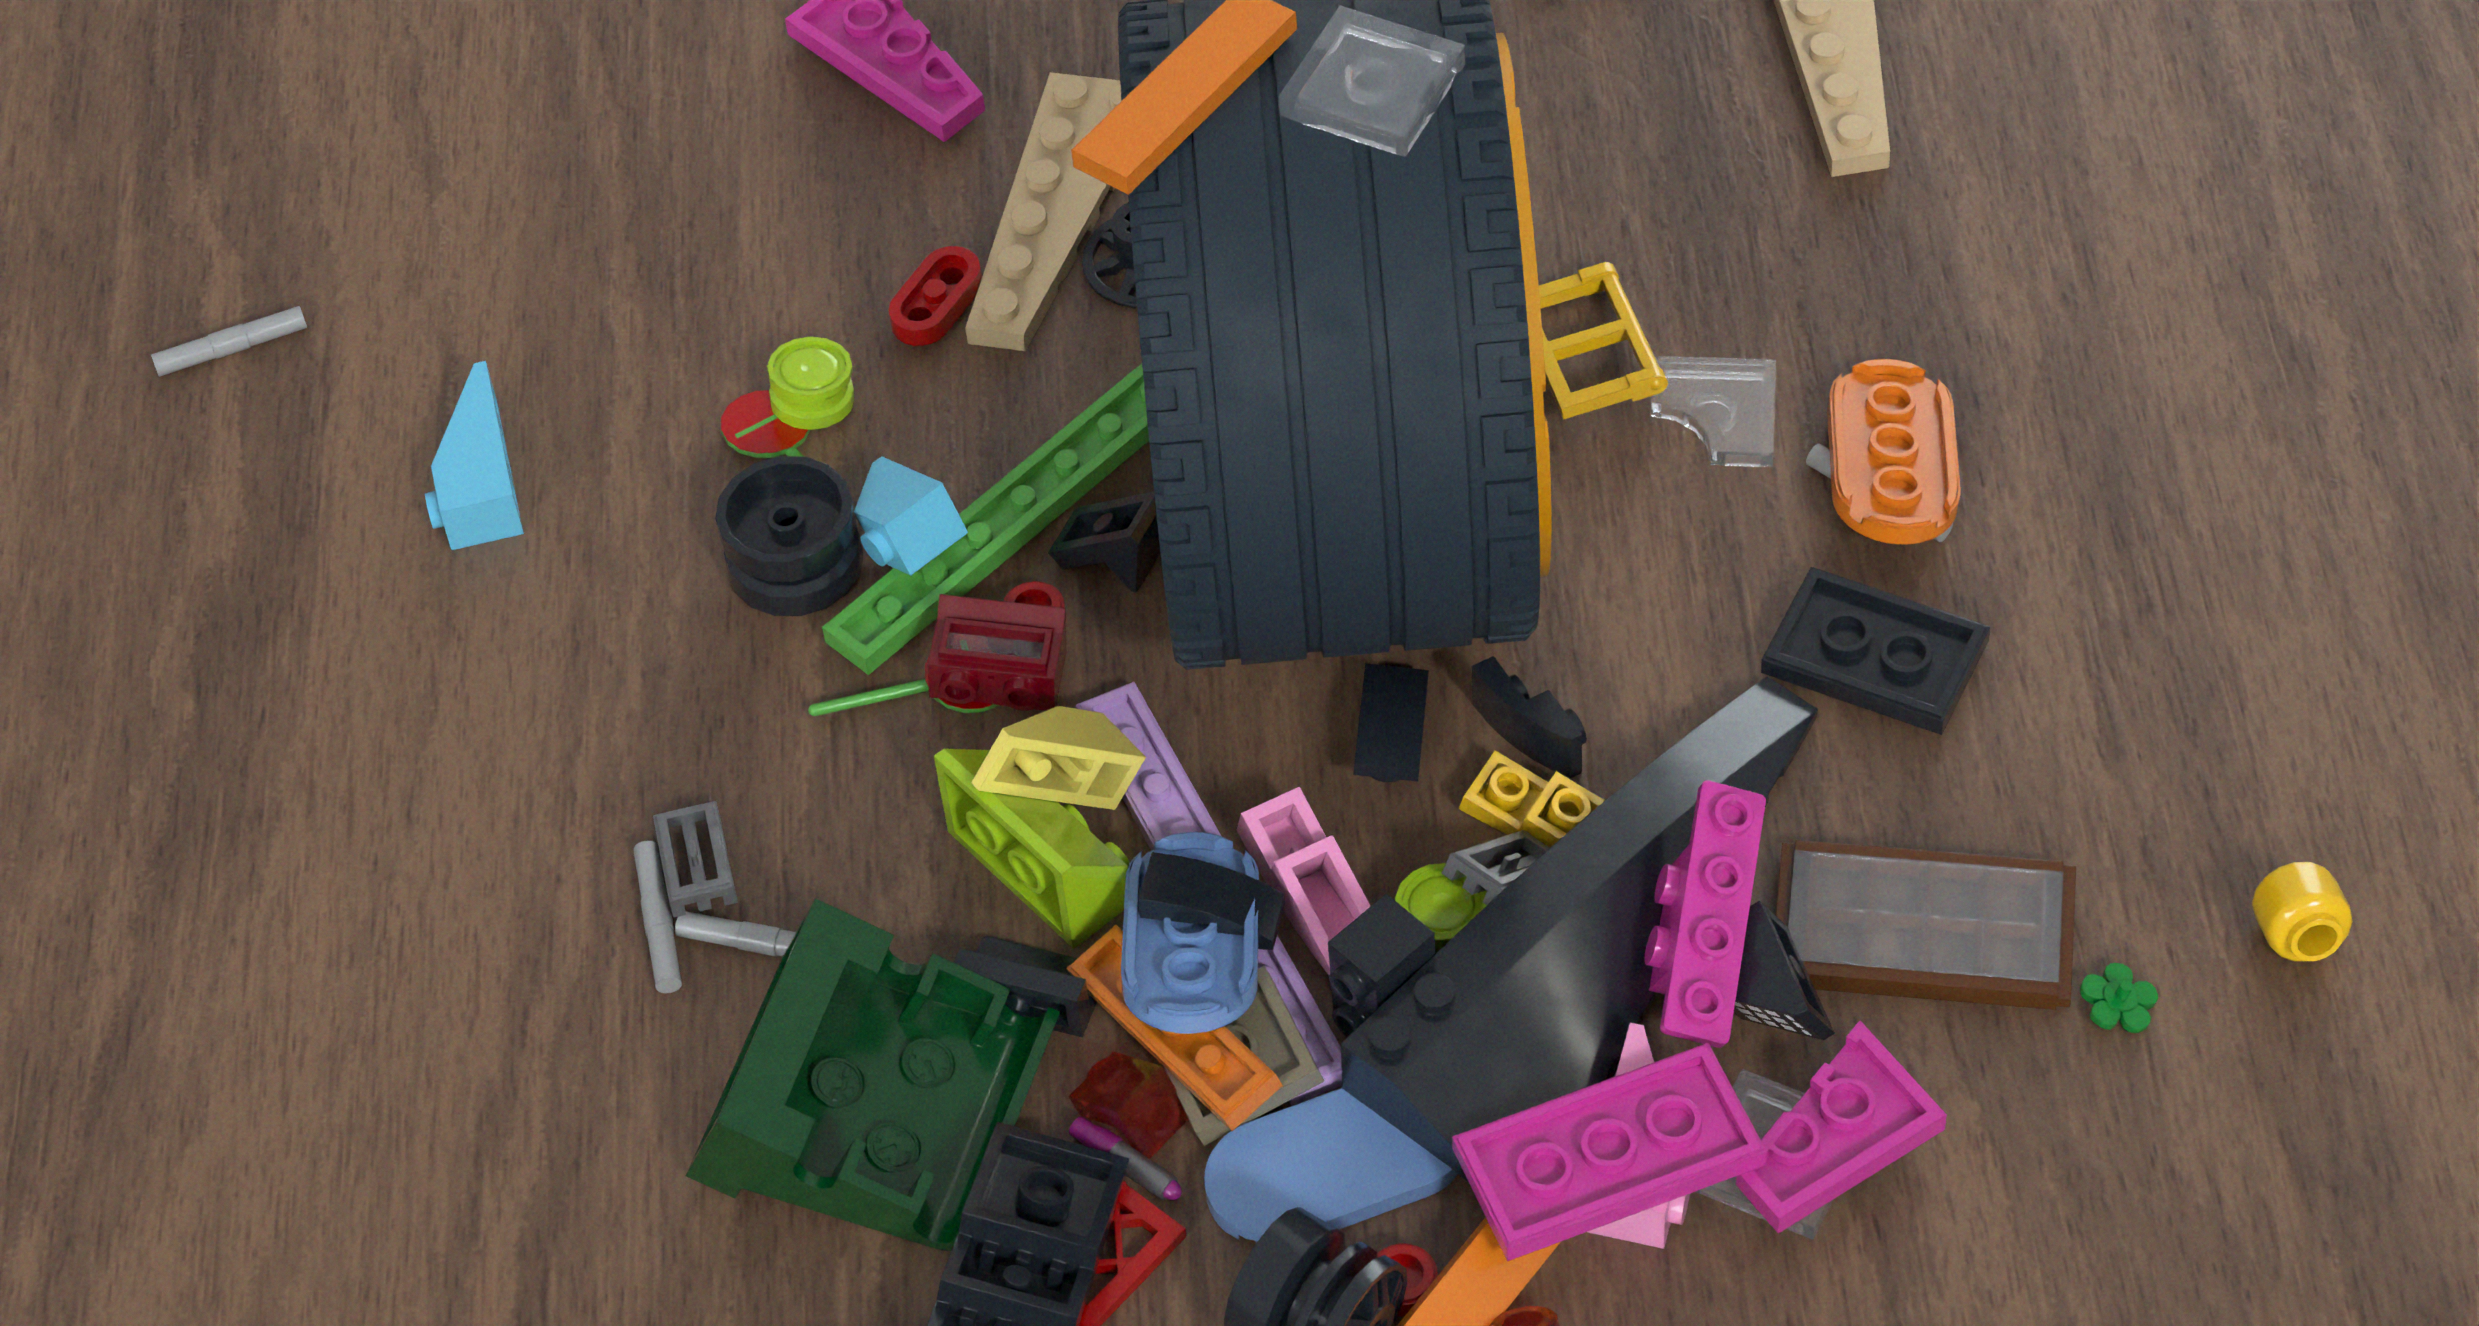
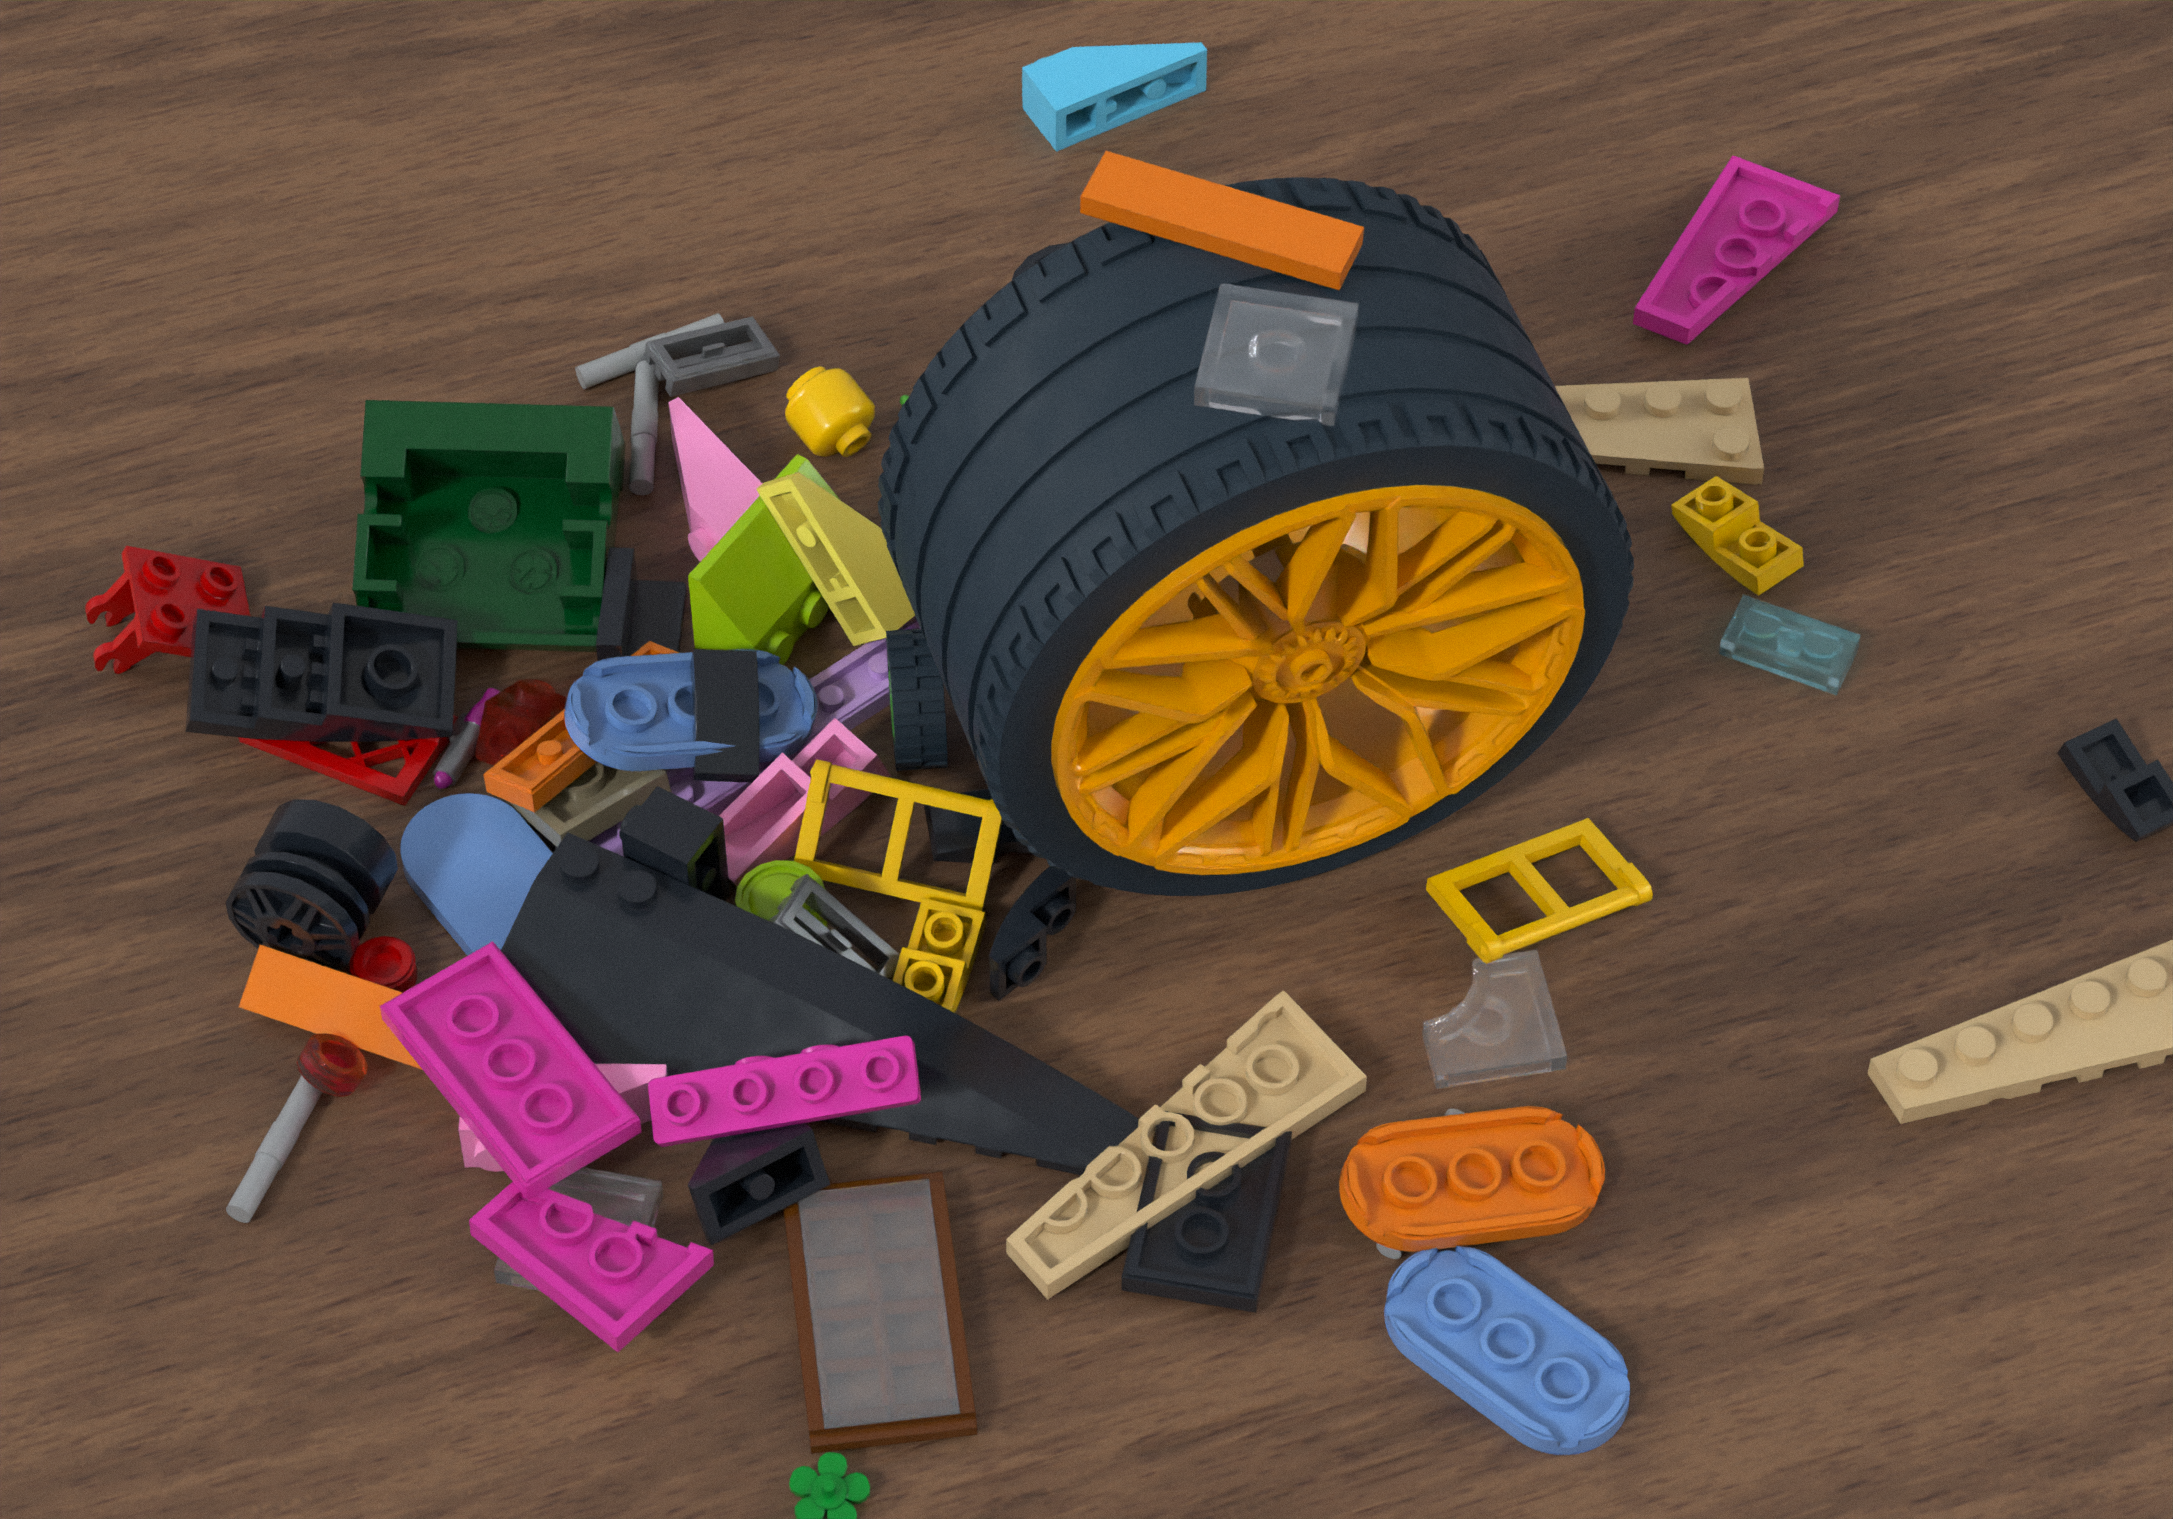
camera: 70 degrees right, 0 degrees up
(819, 765) = (829, 412): none -> yellow head
(894, 880) = (712, 479): none -> bright pink slope
(1243, 739) = (915, 702): none -> black wheel
(1342, 834) = (889, 883): none -> yellow window
(1745, 578) = (1271, 1075): none -> tan wing
(2066, 472) = (1507, 1350): none -> medium blue tile

